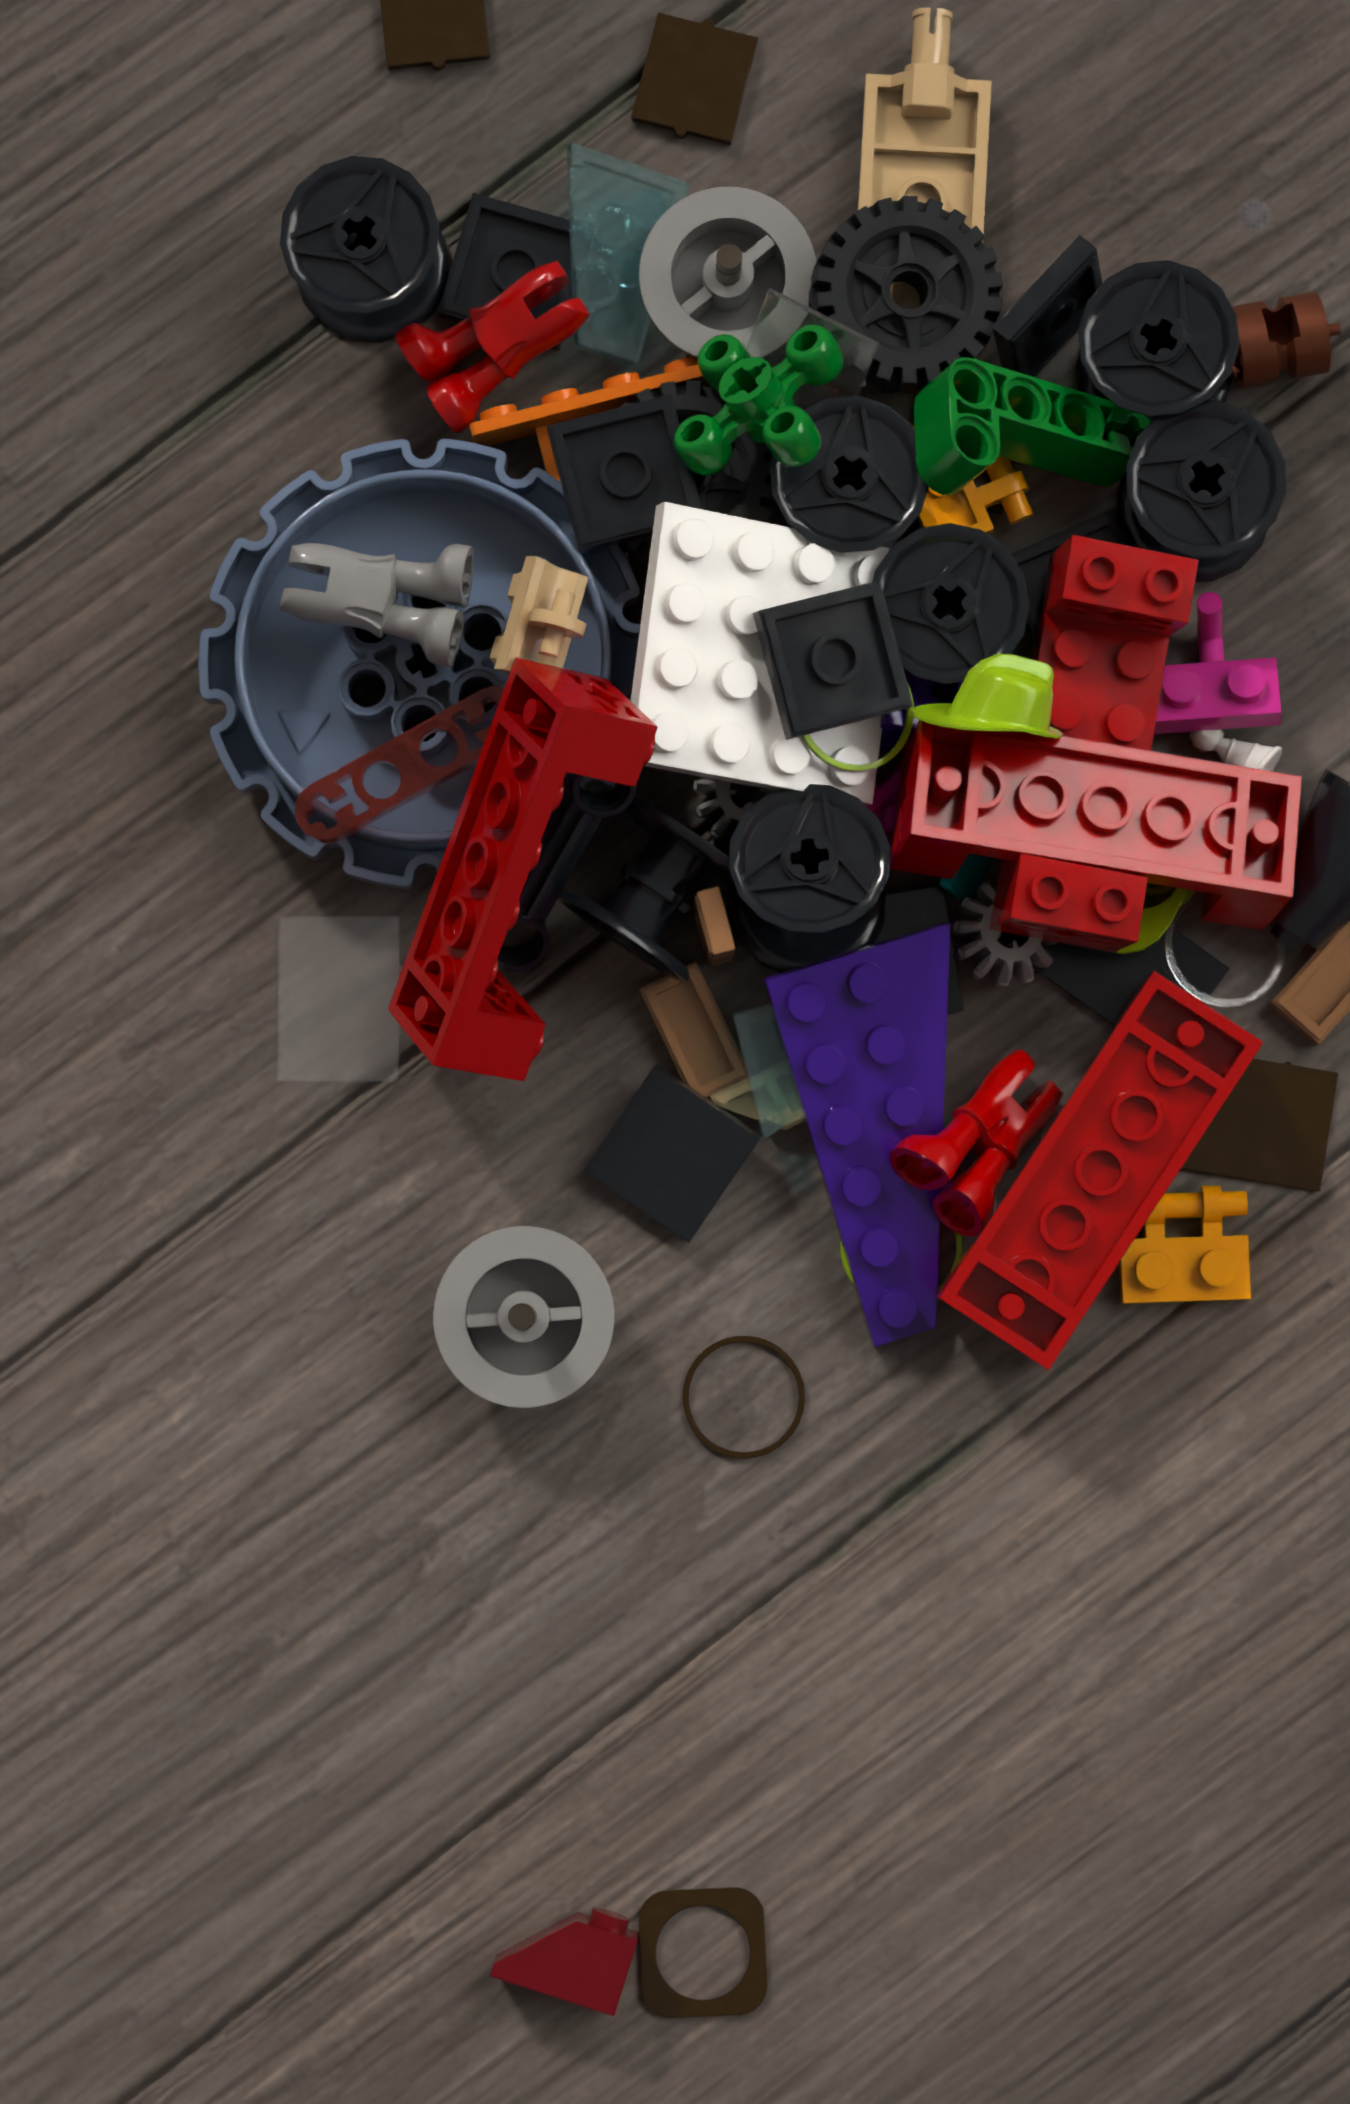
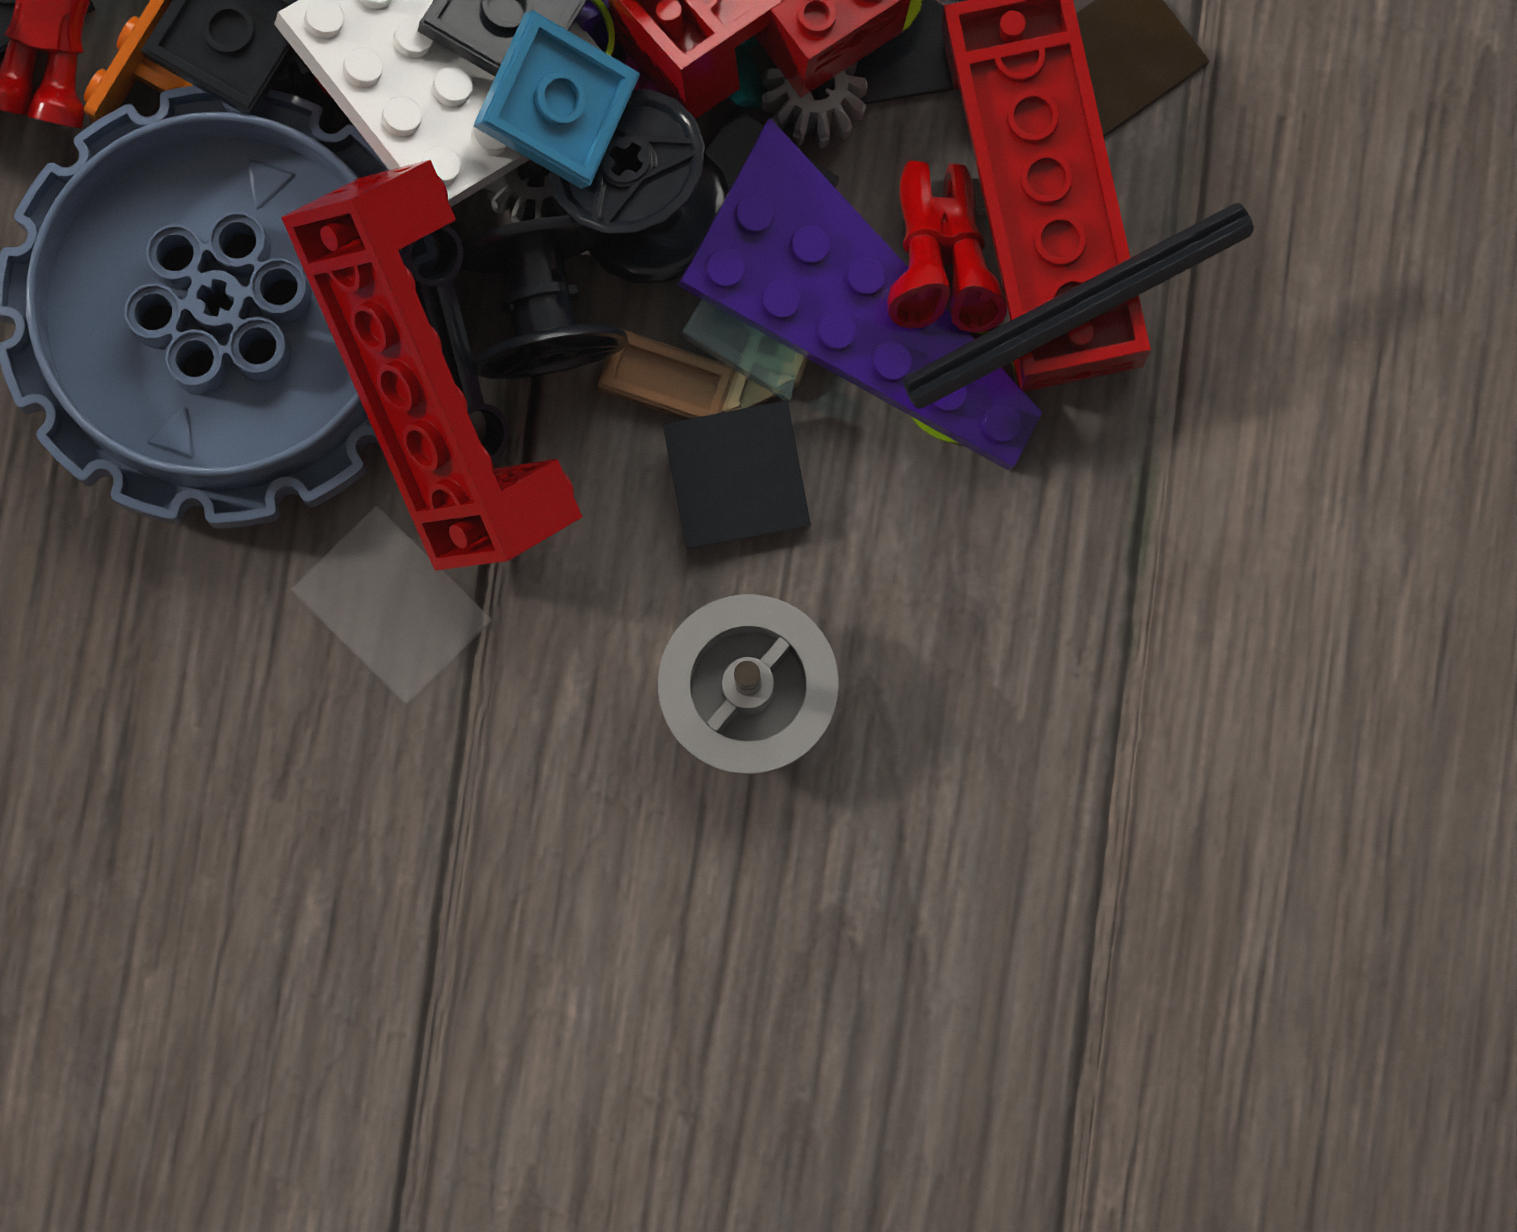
camera: 40 degrees left, 5 degrees down
(366, 588) = (128, 283): light grey piece -> none
(405, 755) = (273, 371): clear red beam -> none
(541, 615) = (270, 175): tan hips -> none
(574, 1960) = (1242, 1101): dark red slope -> none
(660, 1995) = (1384, 1001): dark brown piece -> none
(713, 927) = (607, 285): medium nougat tile -> none
(792, 1428) = (951, 540): dark brown piece -> none
(800, 765) = (556, 99): none -> dark azure tile
(1027, 1288) = (1078, 305): none -> black axle
(1189, 1266) = (1180, 191): light orange plate -> none

